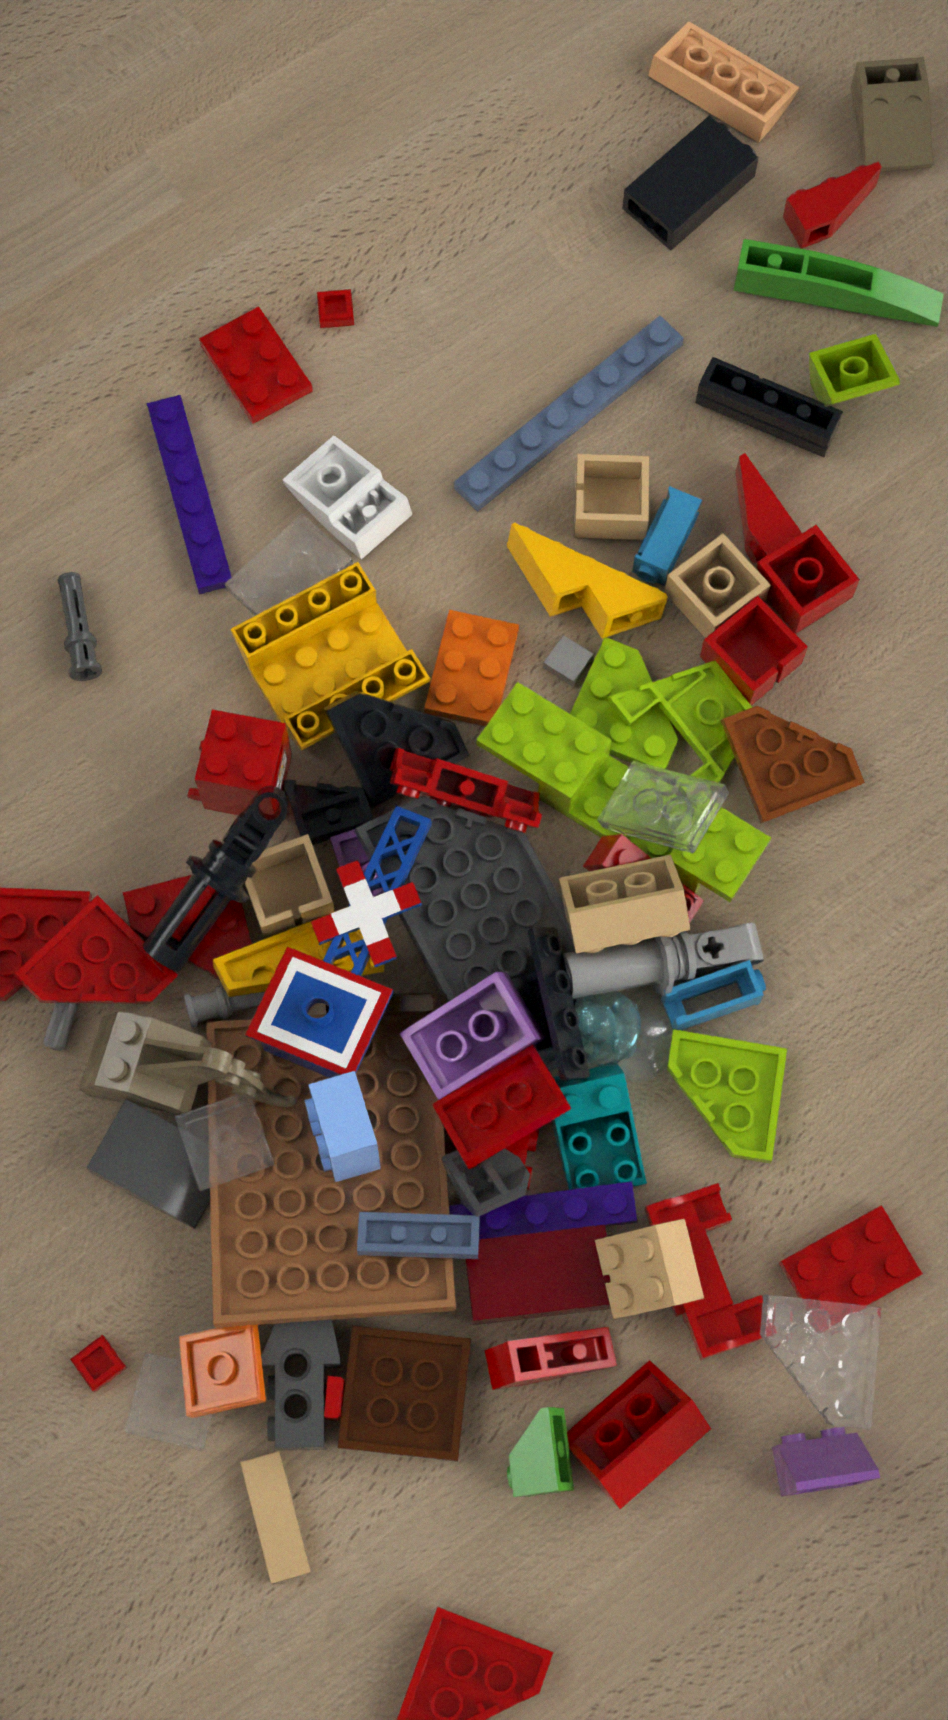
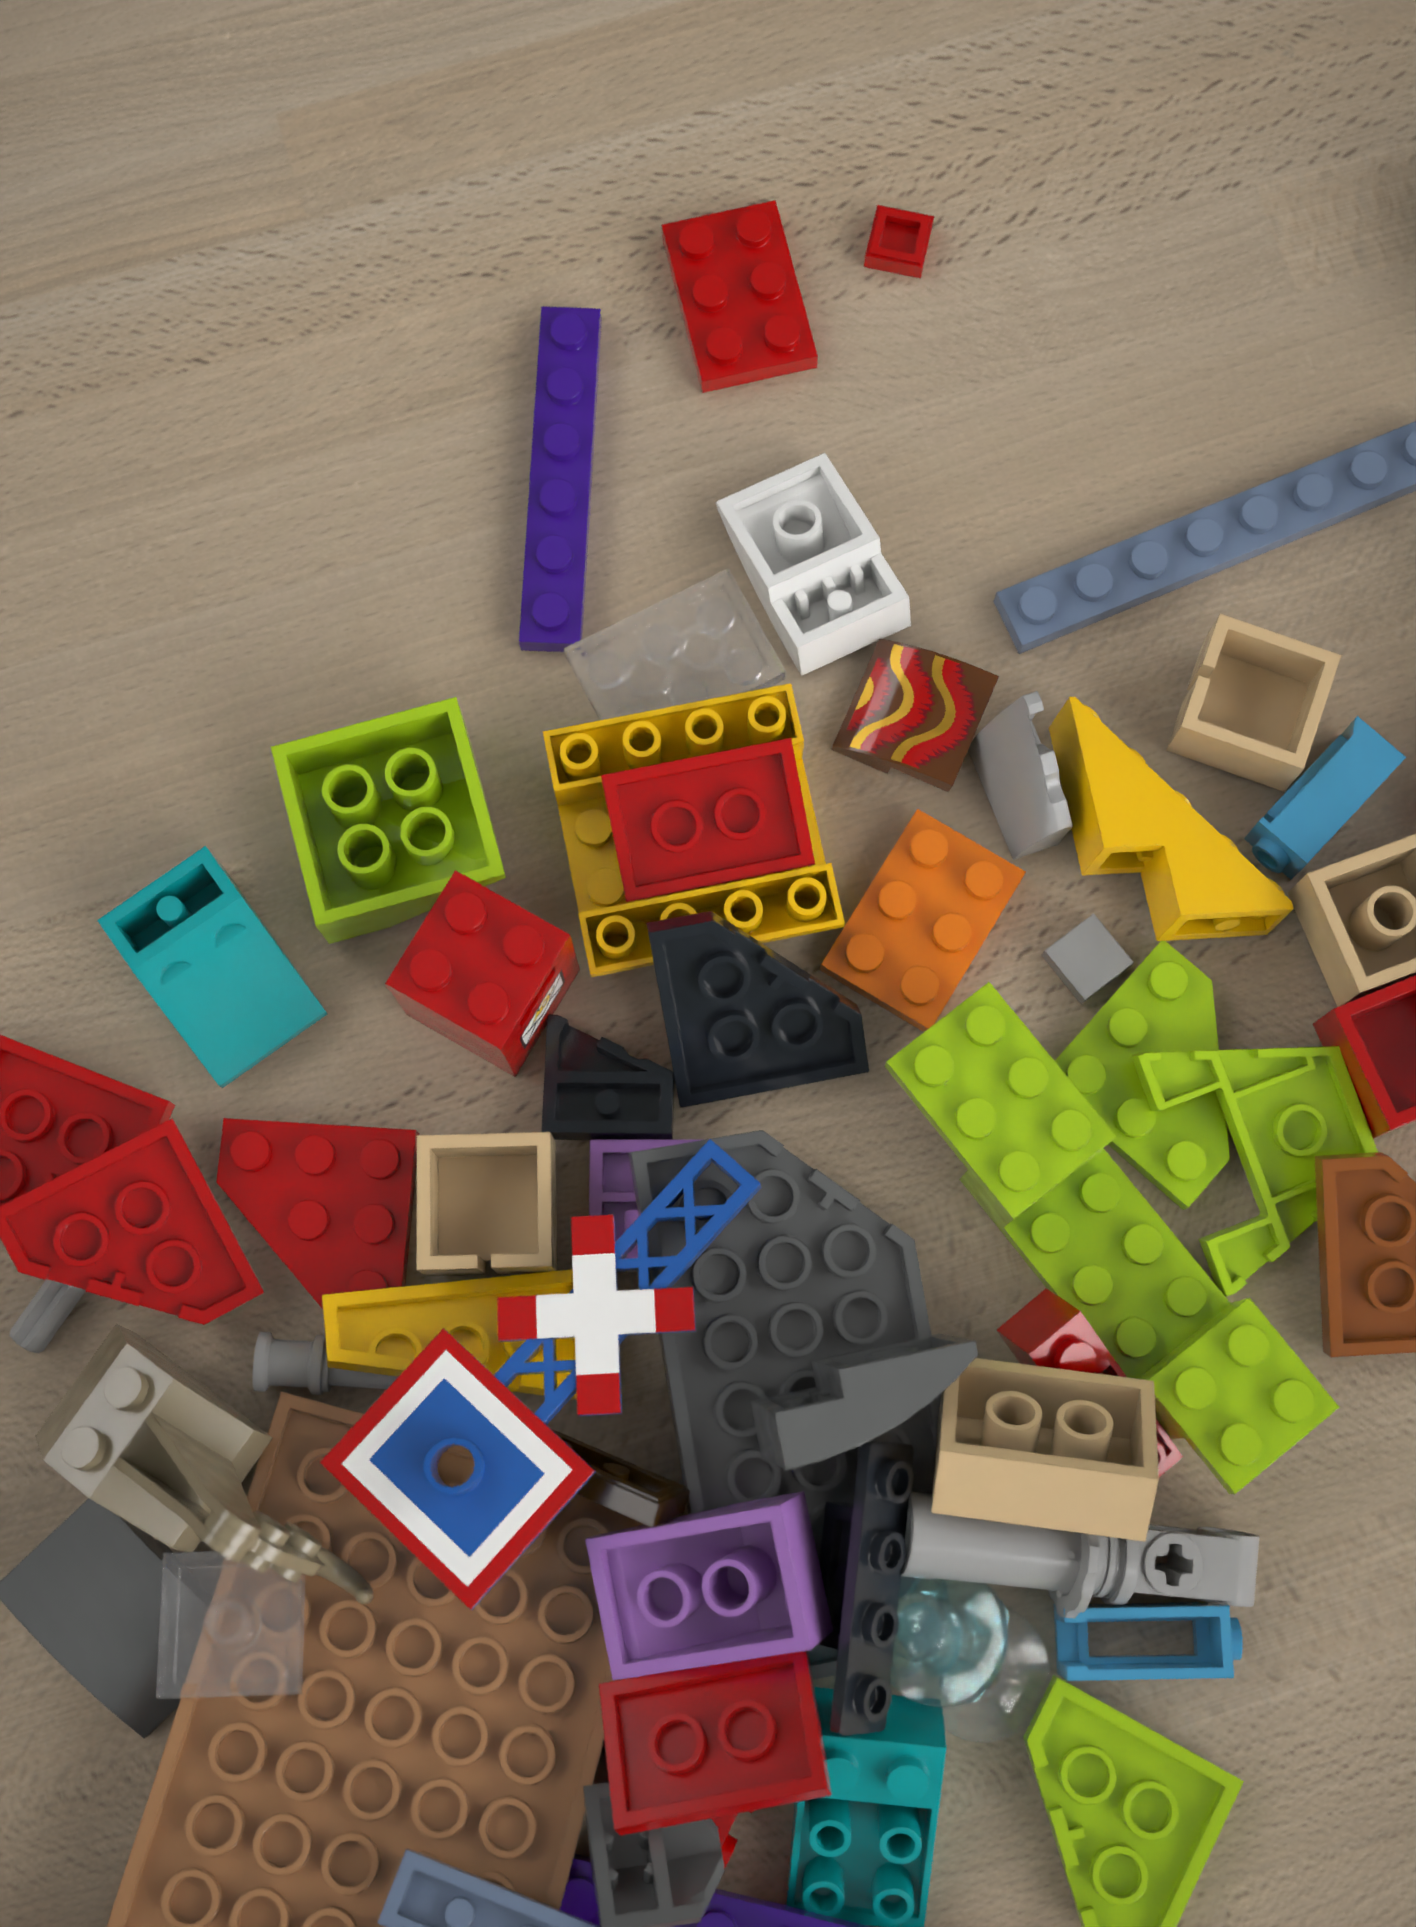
camera: 20 degrees right, 5 degrees up
(80, 641) = (298, 675): dark grey pin -> none
(88, 812) = (212, 966): none -> teal slope
(158, 702) = (386, 817): none -> lime slope
(225, 871) = (375, 1161): black piece -> none
(337, 646) = (708, 819): none -> red plate
(341, 1118) = (427, 1687): light blue piece -> none
(430, 559) = (915, 713): none -> slope
(465, 789) = (856, 1147): red bracket -> none
(500, 575) = (1021, 779): none -> light grey slope
(515, 910) = (858, 1398): none -> dark grey slope
(663, 806) = (1169, 1285): clear plate -> none

